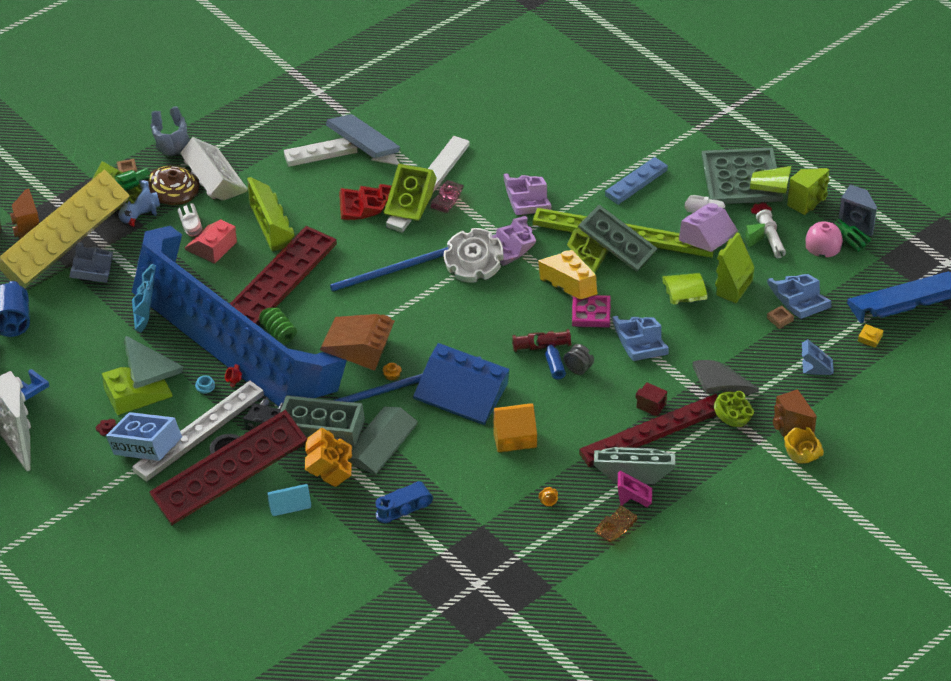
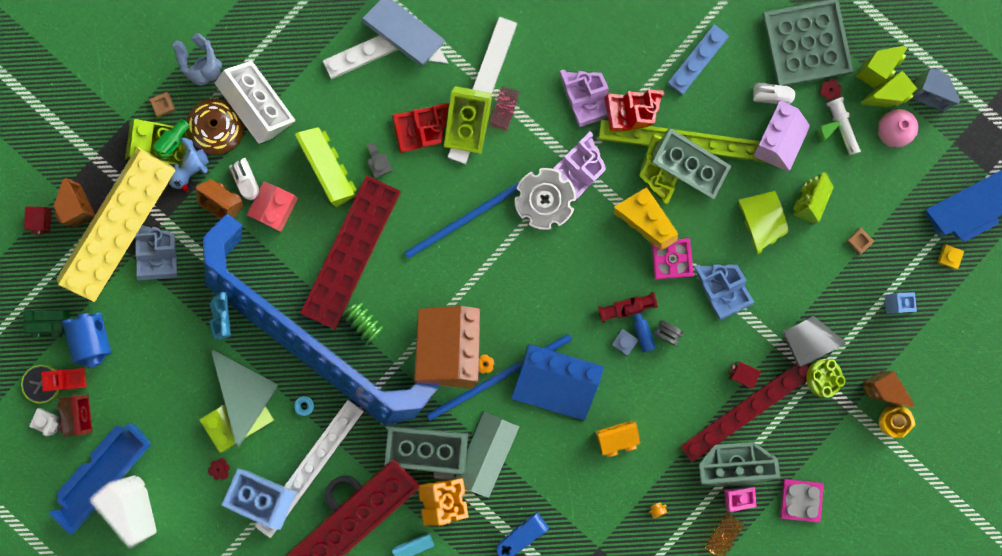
camera: 10 degrees left, 40 degrees up
(157, 218) = (217, 199): none -> dark orange slope
(233, 375) = (330, 392): red plate -> none
(259, 414) = (370, 449): black piece -> none
(318, 221) = (378, 163): none -> dark grey plate
(535, 368) = (624, 342): none -> sand blue plate
(568, 203) = (632, 110): none -> red slope
(700, 504) = (801, 500): none -> light grey piece
(771, 180) = (843, 56): lime slope -> none
(800, 294) = (878, 210): medium blue slope -> none
(813, 207) = (892, 92): none -> lime slope
(853, 235) = (924, 116): green arm -> none

